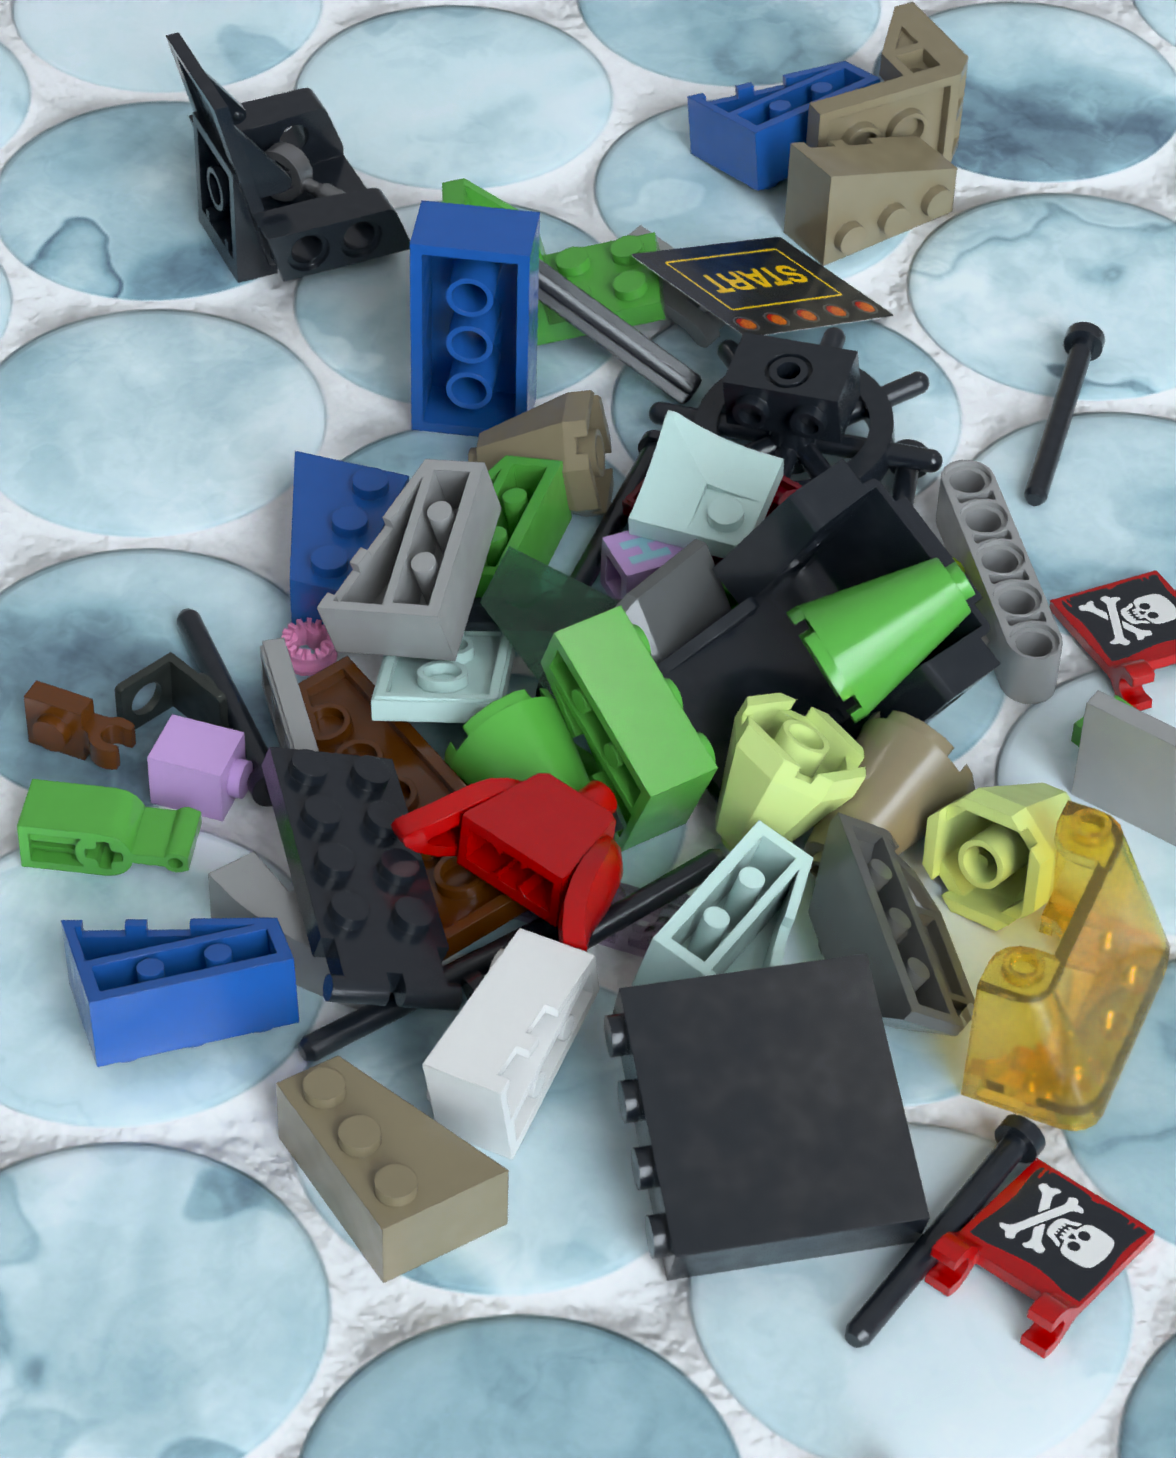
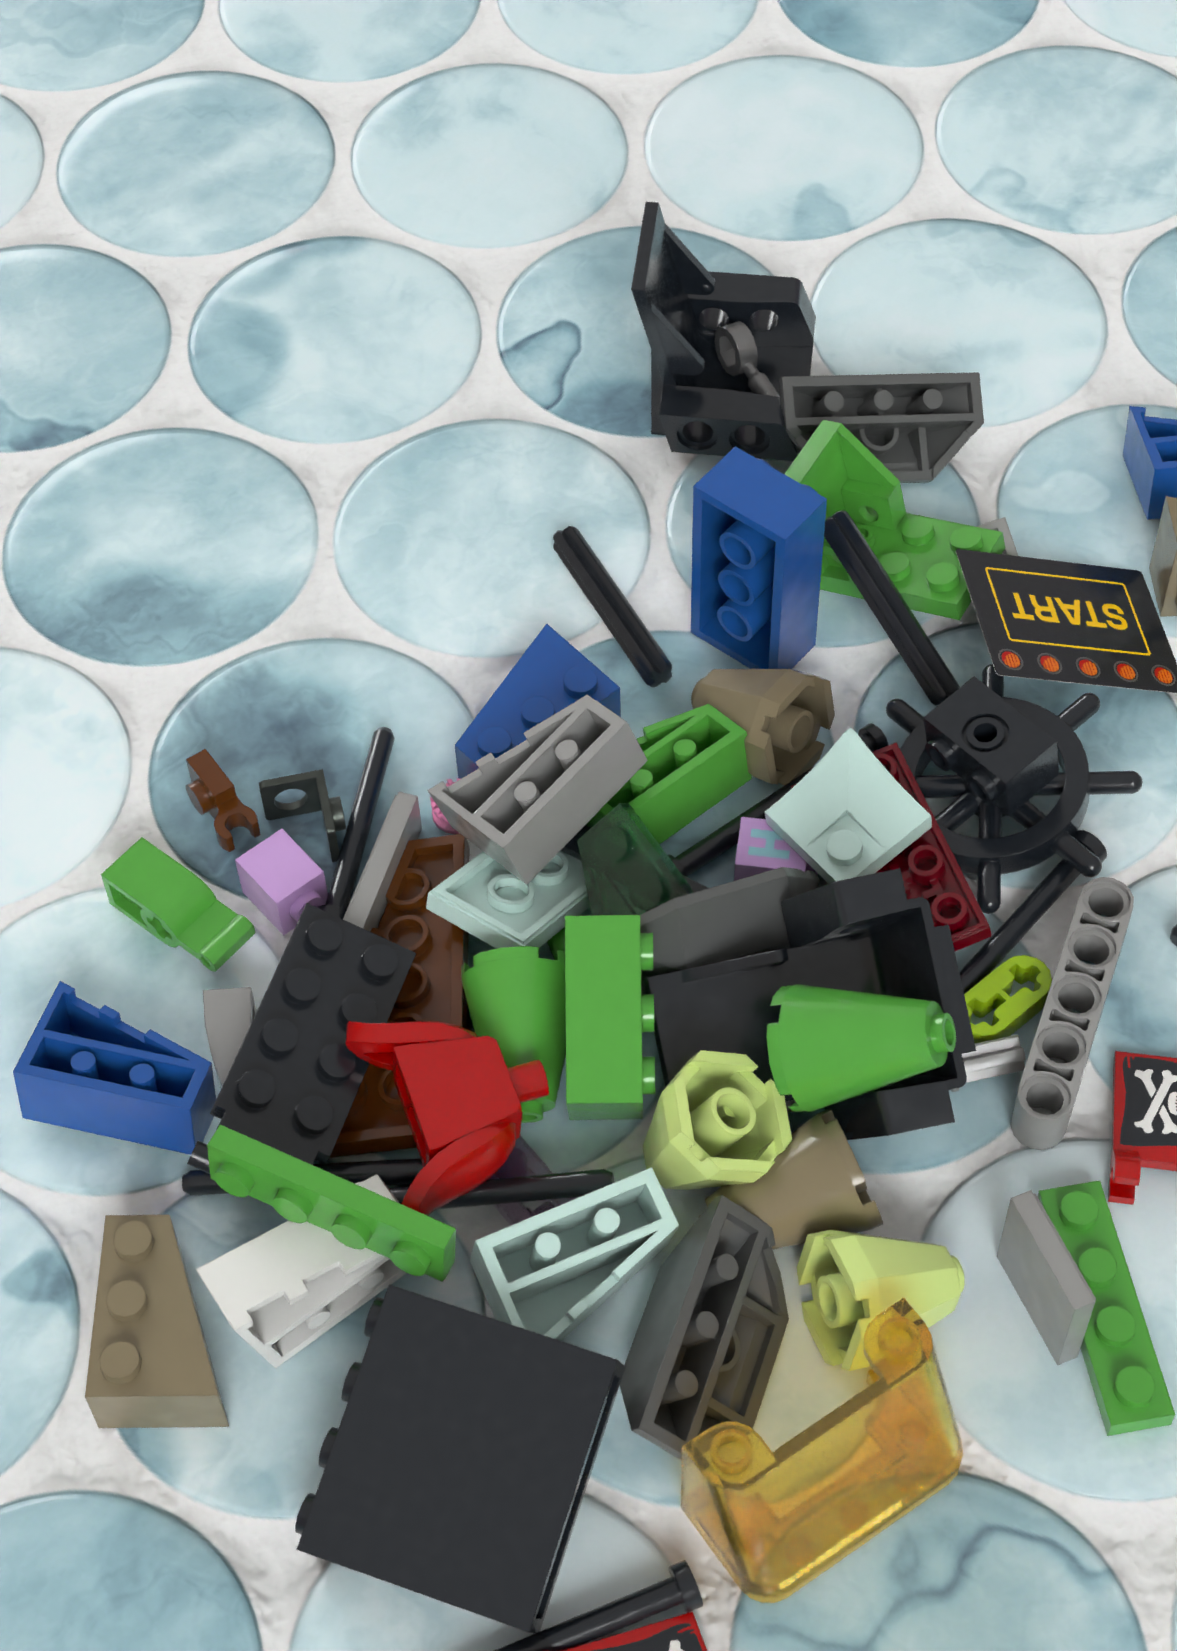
camera: 35 degrees right, 10 degrees up
(319, 428) = (612, 607): none -> black axle
(506, 159) = (902, 419): none -> dark grey wedge
(512, 951) = (332, 1203): none -> bright green plate

